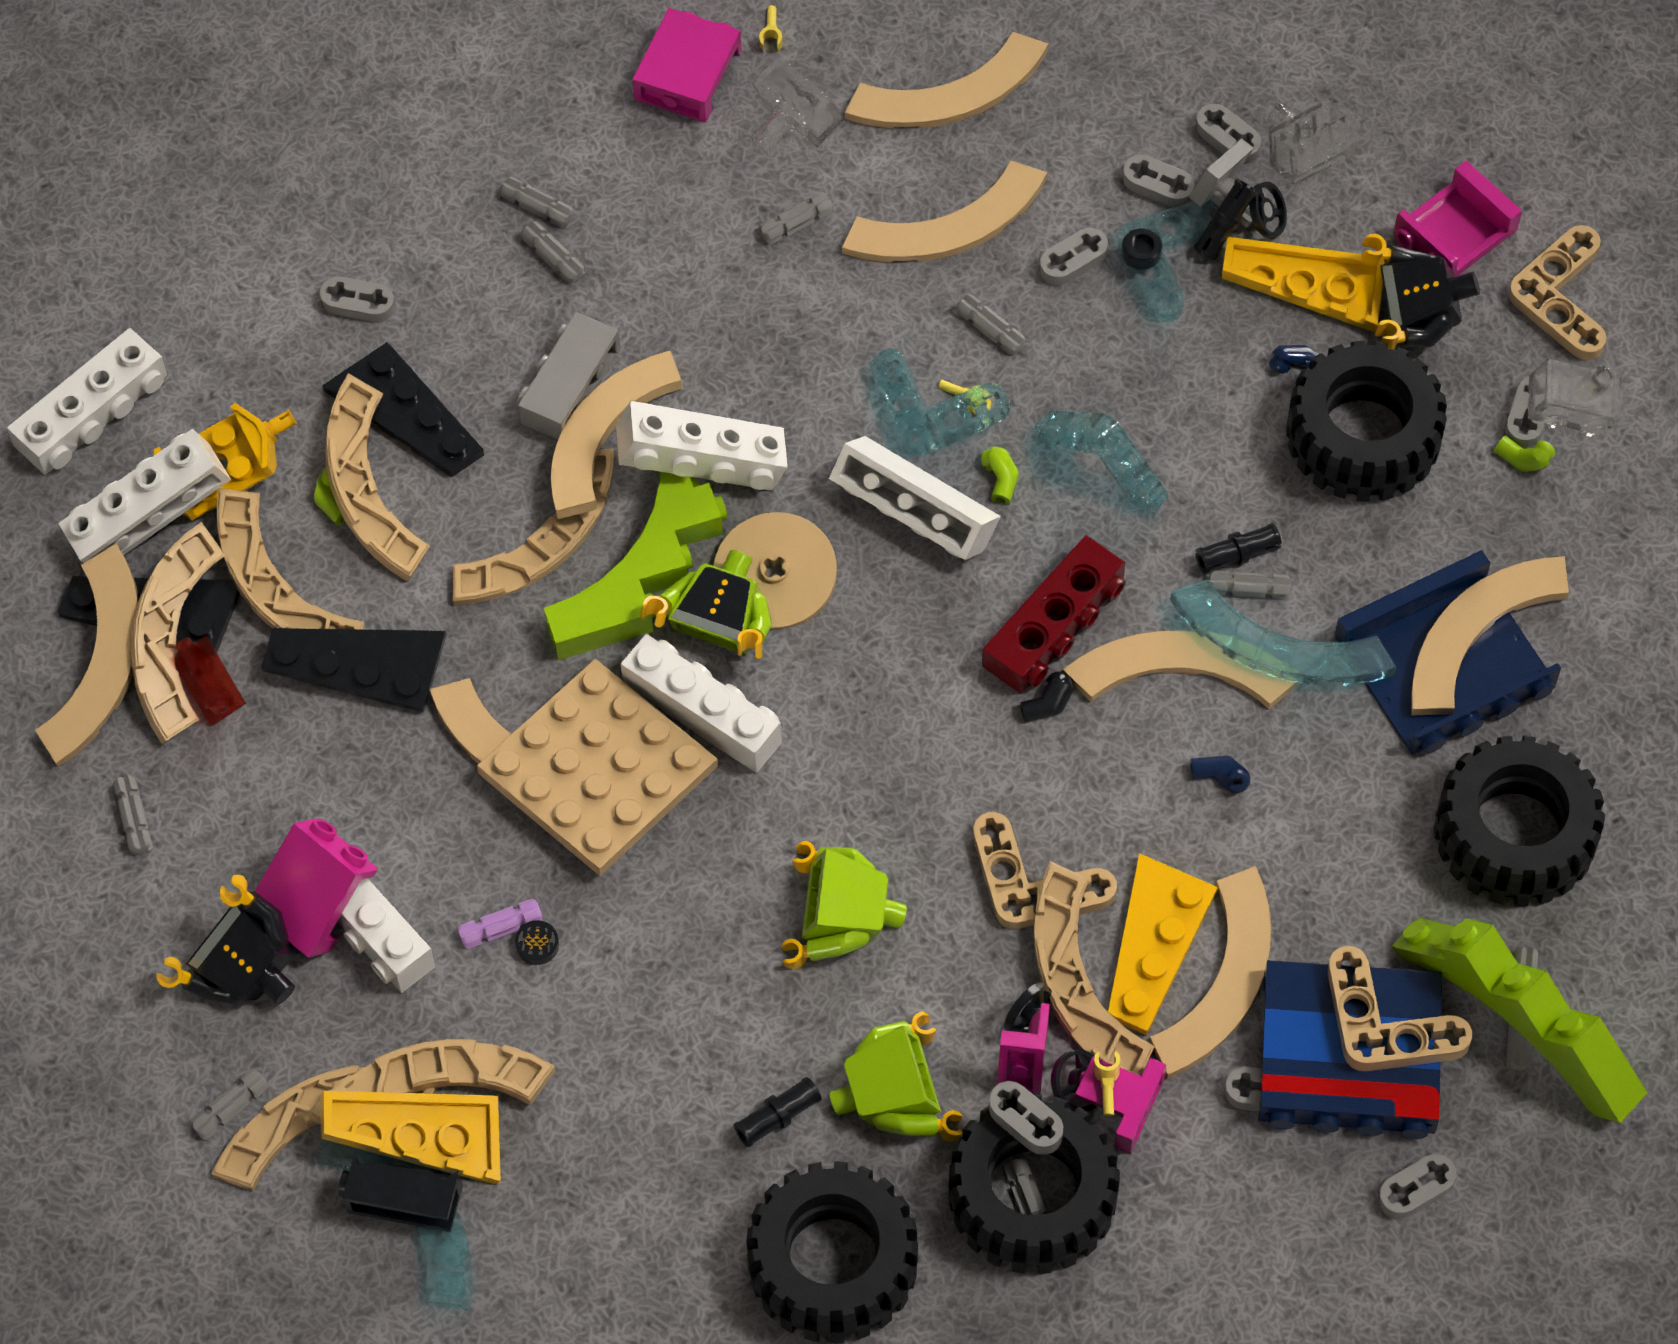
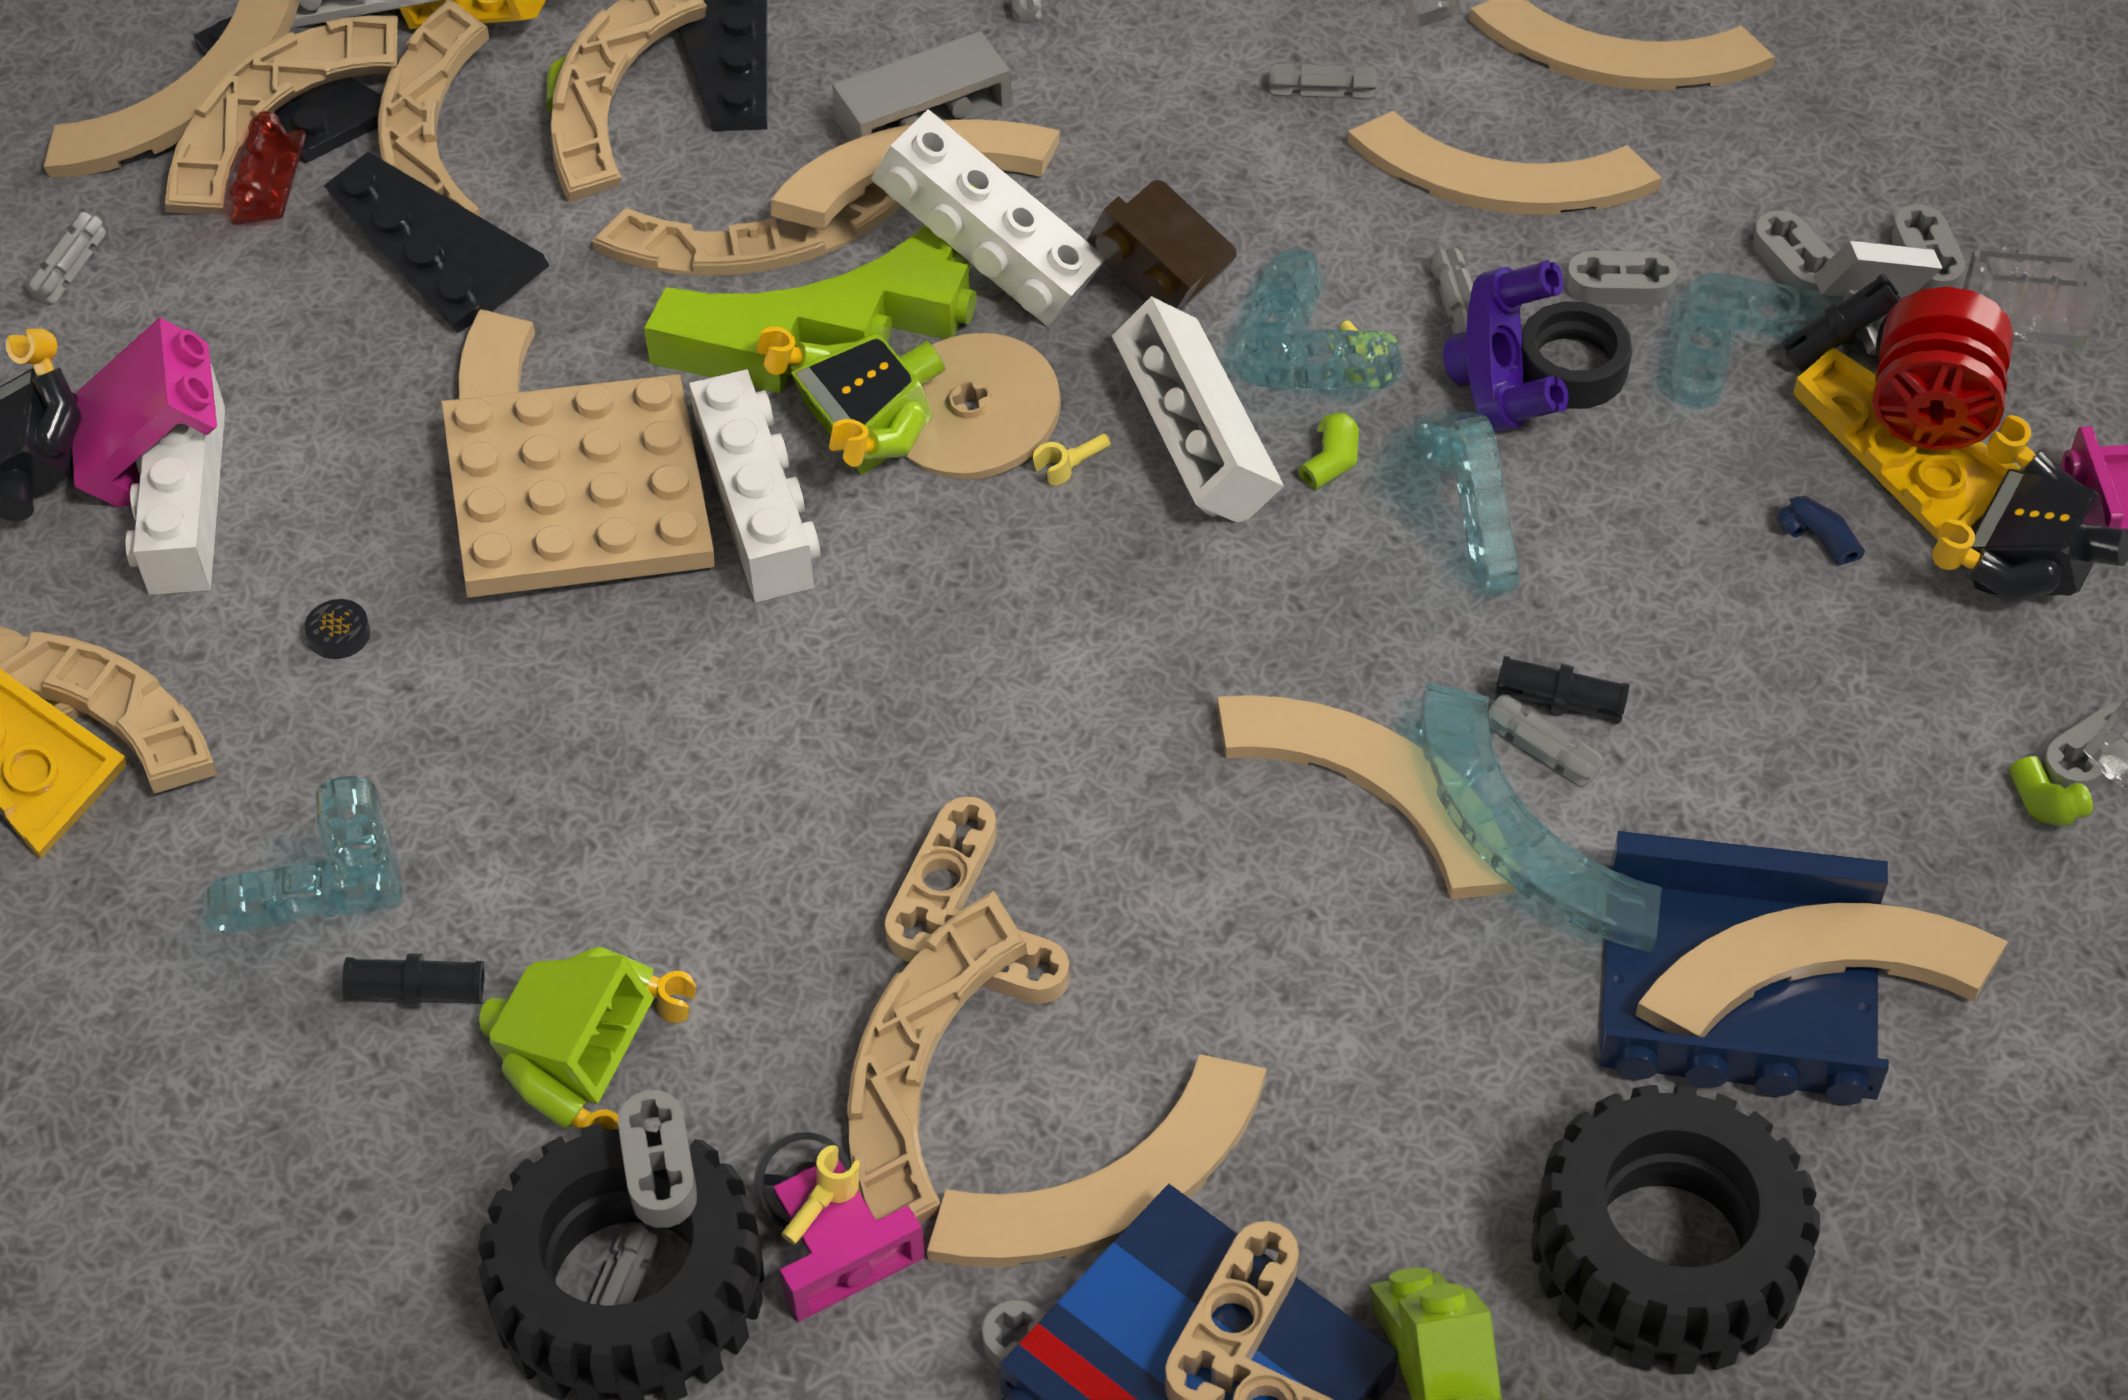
camera: 35 degrees right, 10 degrees down
(499, 923) = (316, 583): lavender axle -> none
(702, 1069) = (345, 883): none -> clear light blue beam
(806, 399) = (1161, 245): none -> dark brown bracket
(834, 1307) = (325, 1253): black tyre -> none
(842, 904) = (702, 793): lime torso -> none
(857, 569) = (1056, 453): none -> light yellow hand
(1021, 1052) = (753, 1102): dark pink piece -> none
(1047, 356) = (1491, 347): none -> dark purple connector
(1052, 700) = (1174, 725): black arm -> none
(1082, 353) = (1588, 324): none -> black tyre
(1085, 565) = (1258, 628): dark red brick -> none
(1141, 248) = (1709, 304): black tile -> none
(1157, 934) = (1065, 1075): yellow wing -> none
(1222, 769) = (1325, 931): dark blue arm -> none
(1311, 225) = (1943, 368): none -> red wheel
(1357, 464) = (1837, 689): black tyre -> none

